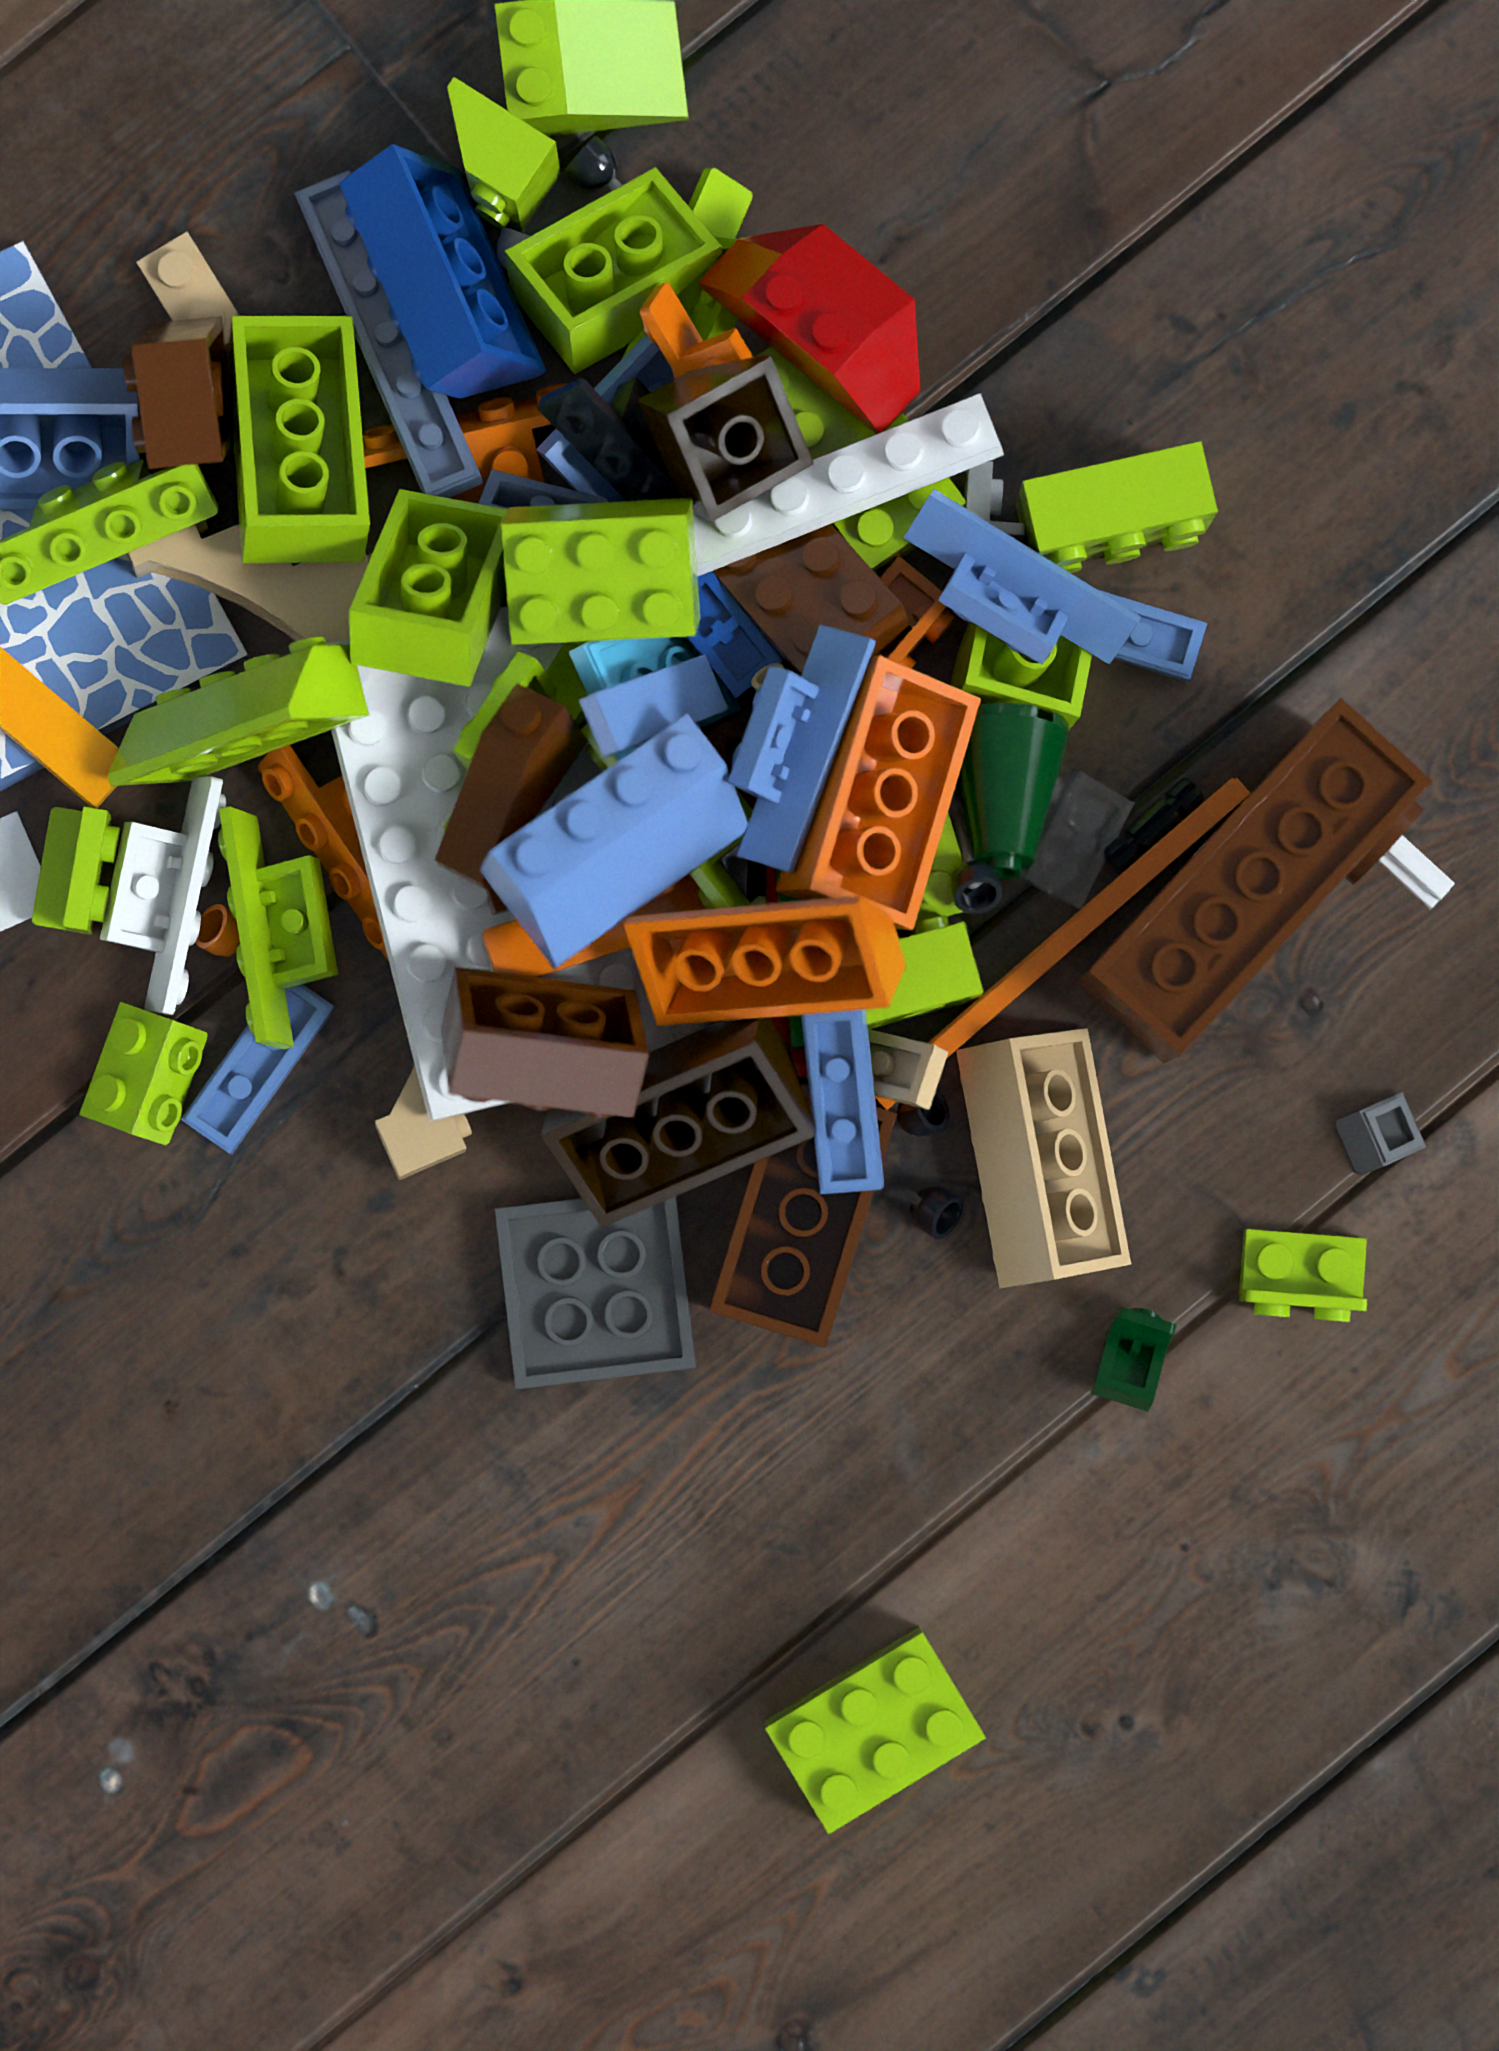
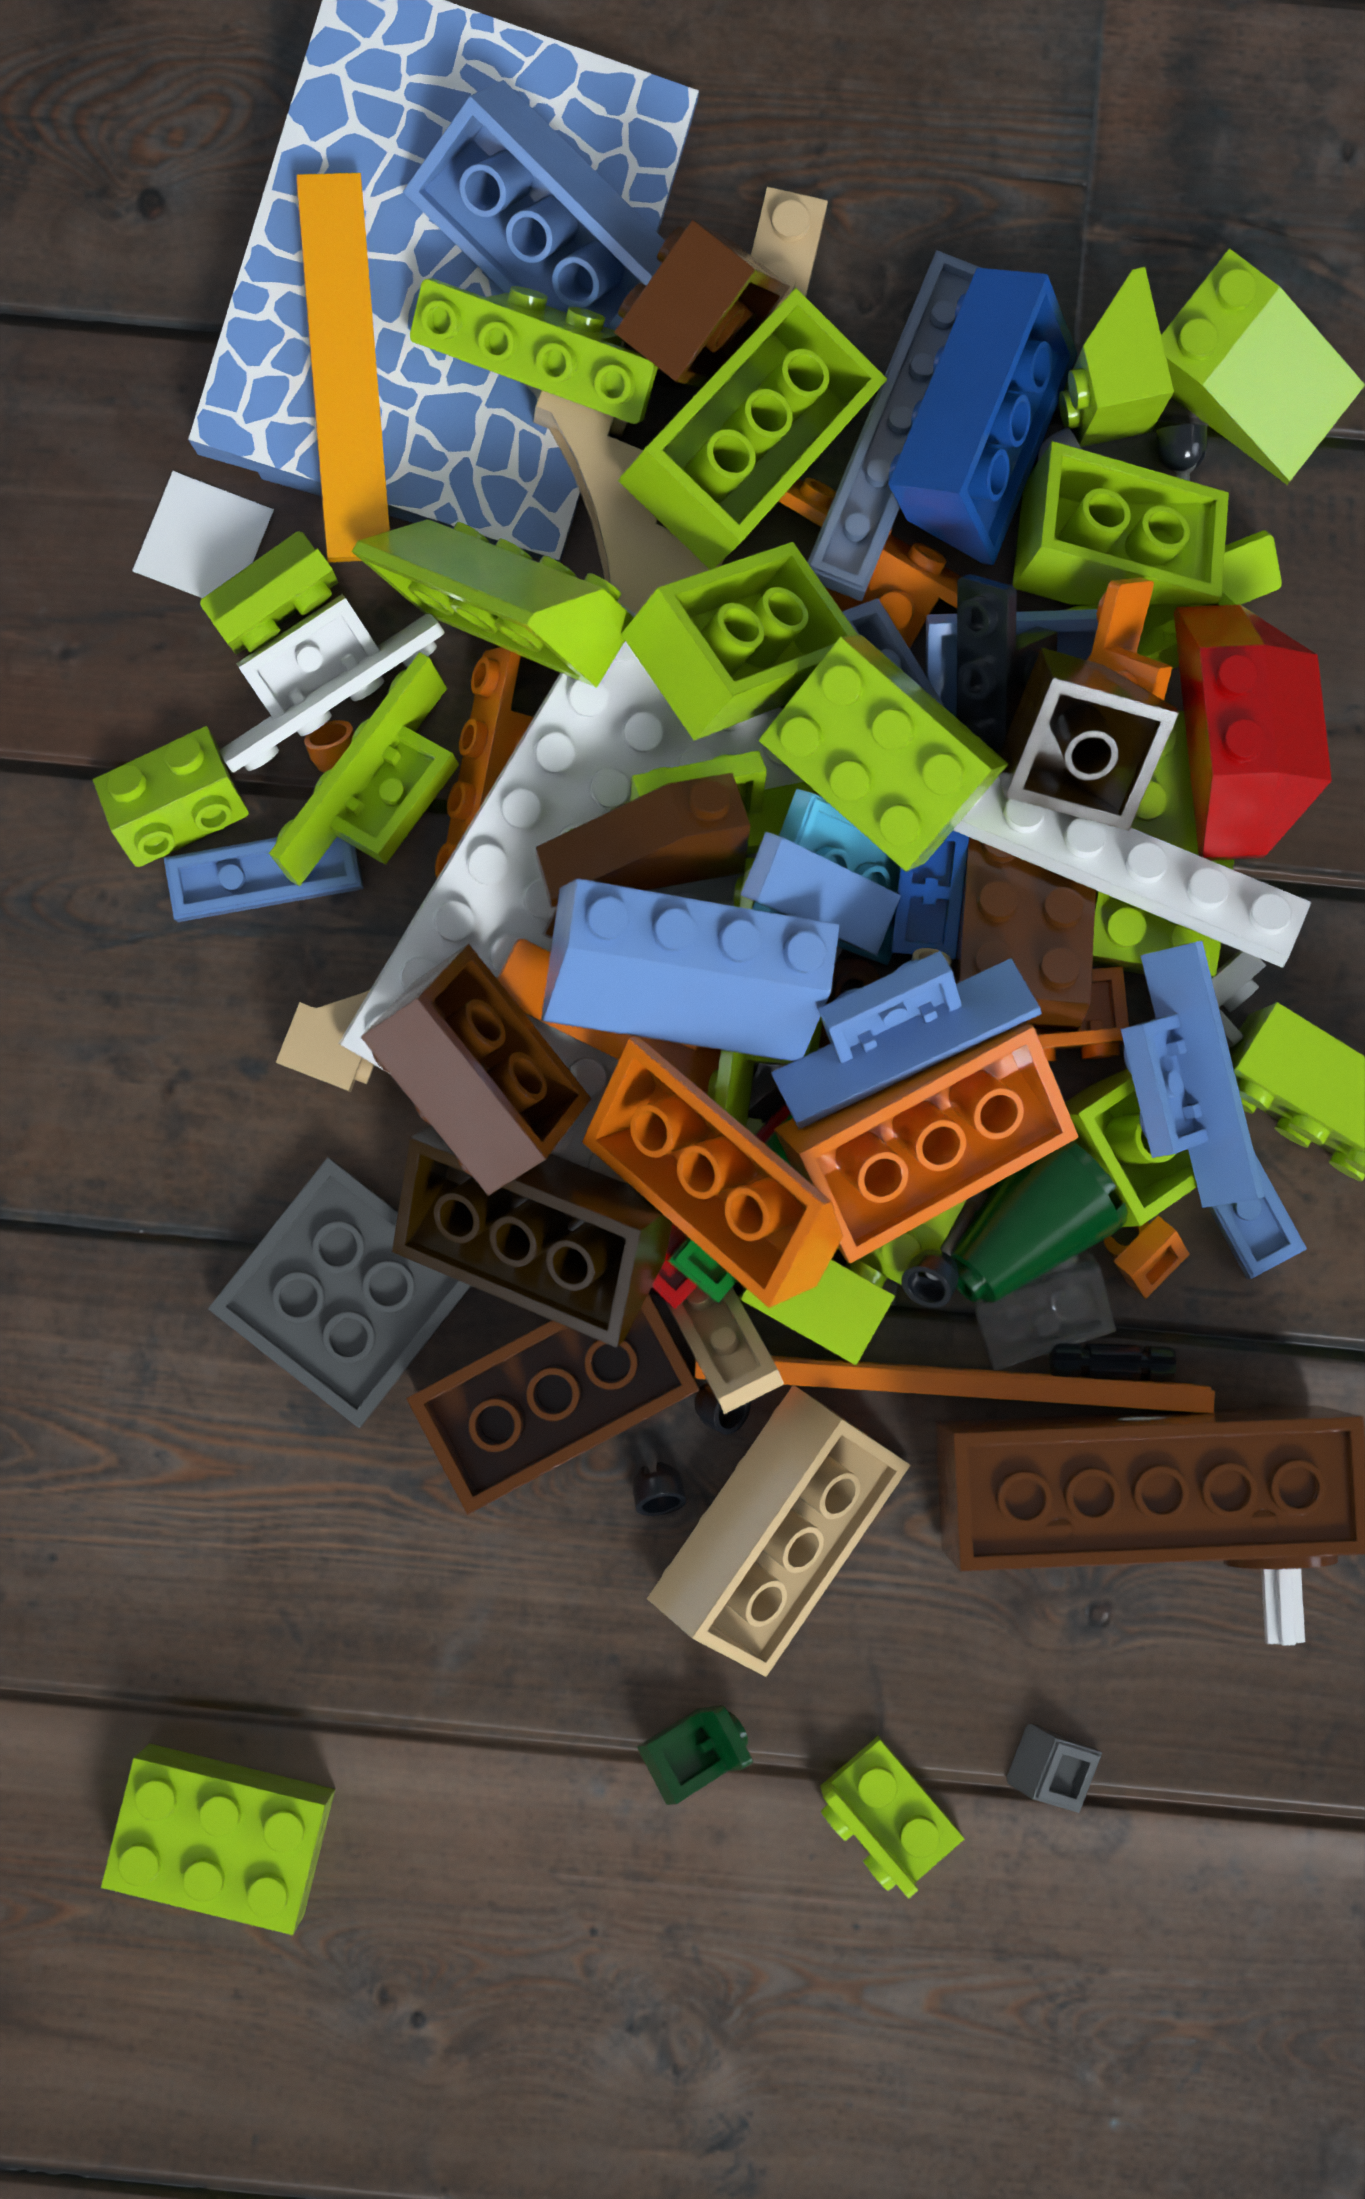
camera: 45 degrees right, 0 degrees up
(843, 1101) = (664, 1342): medium blue tile -> none
(1107, 731) = (1149, 1257): none -> orange tile

